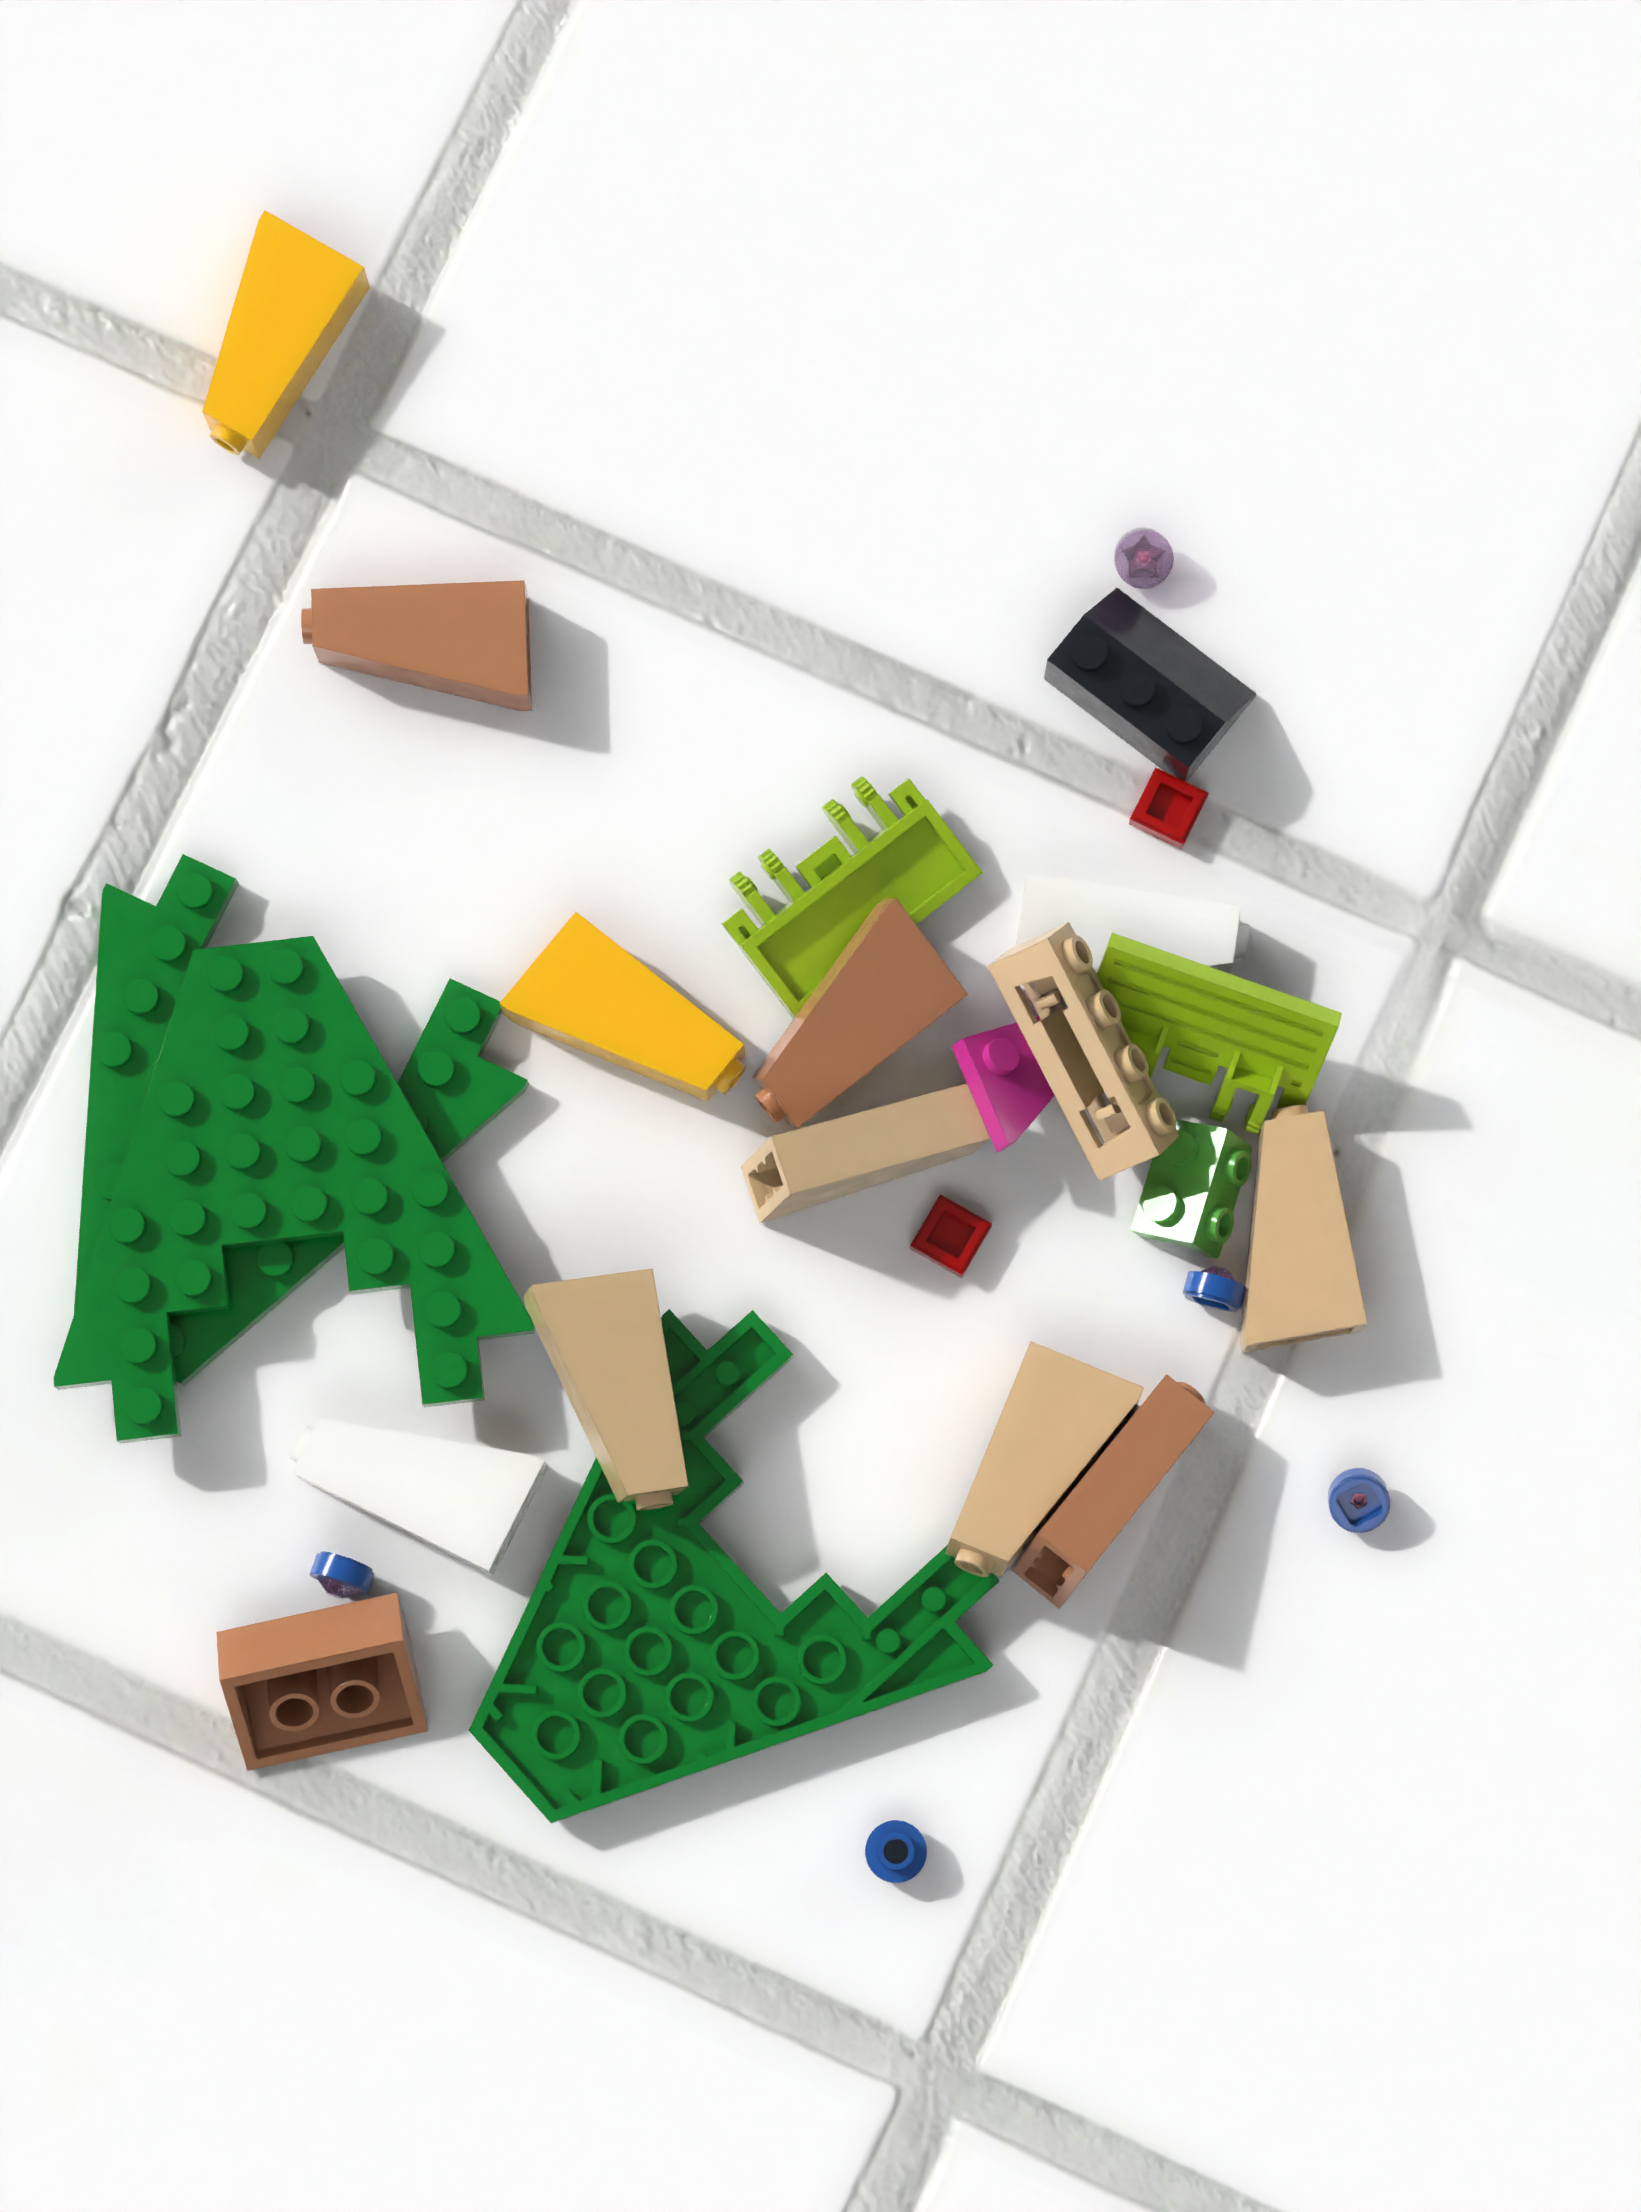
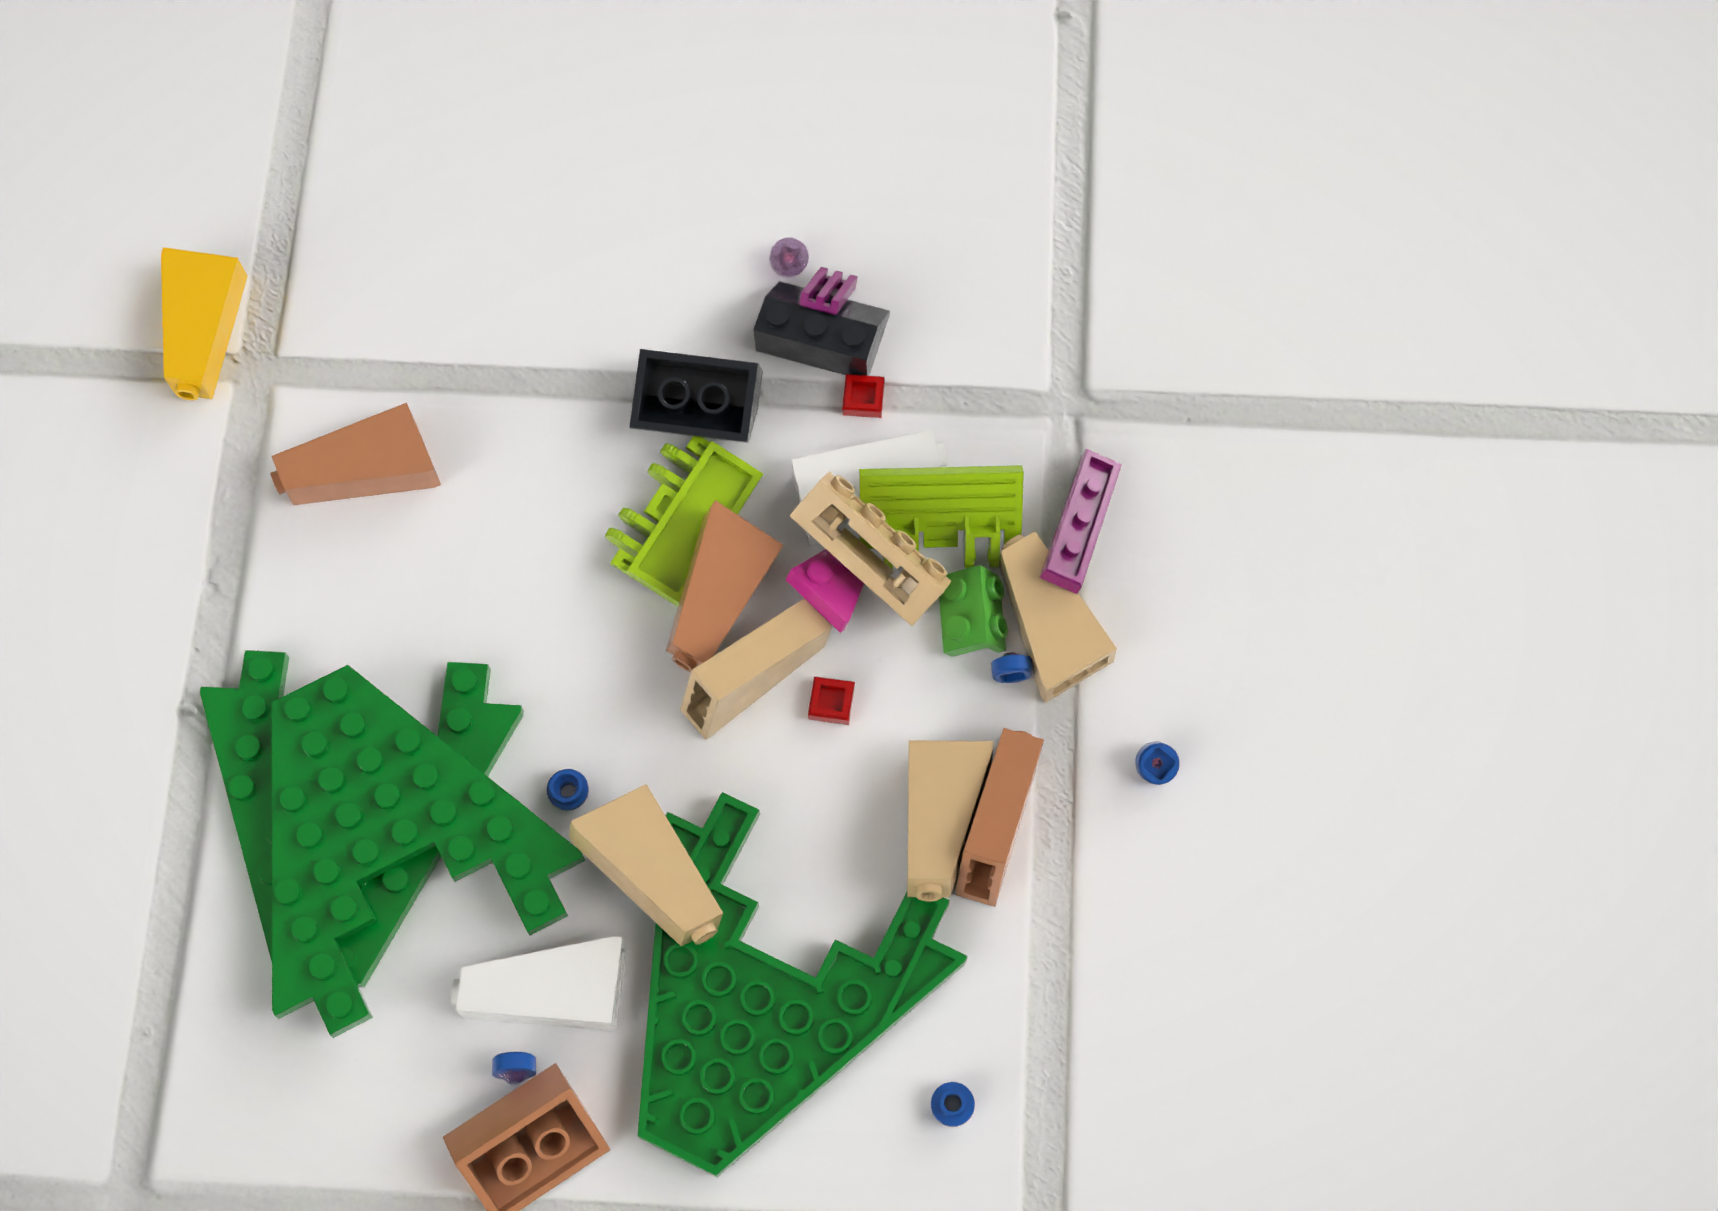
camera: 20 degrees left, 10 degrees down
(541, 1204) = (561, 779): none -> blue plate
(617, 1009) = (566, 640): yellow slope -> none
(929, 727) = (696, 395): none -> black slope
(1193, 620) = (830, 283): none -> magenta tile
(1395, 1118) = (1080, 521): none -> tile

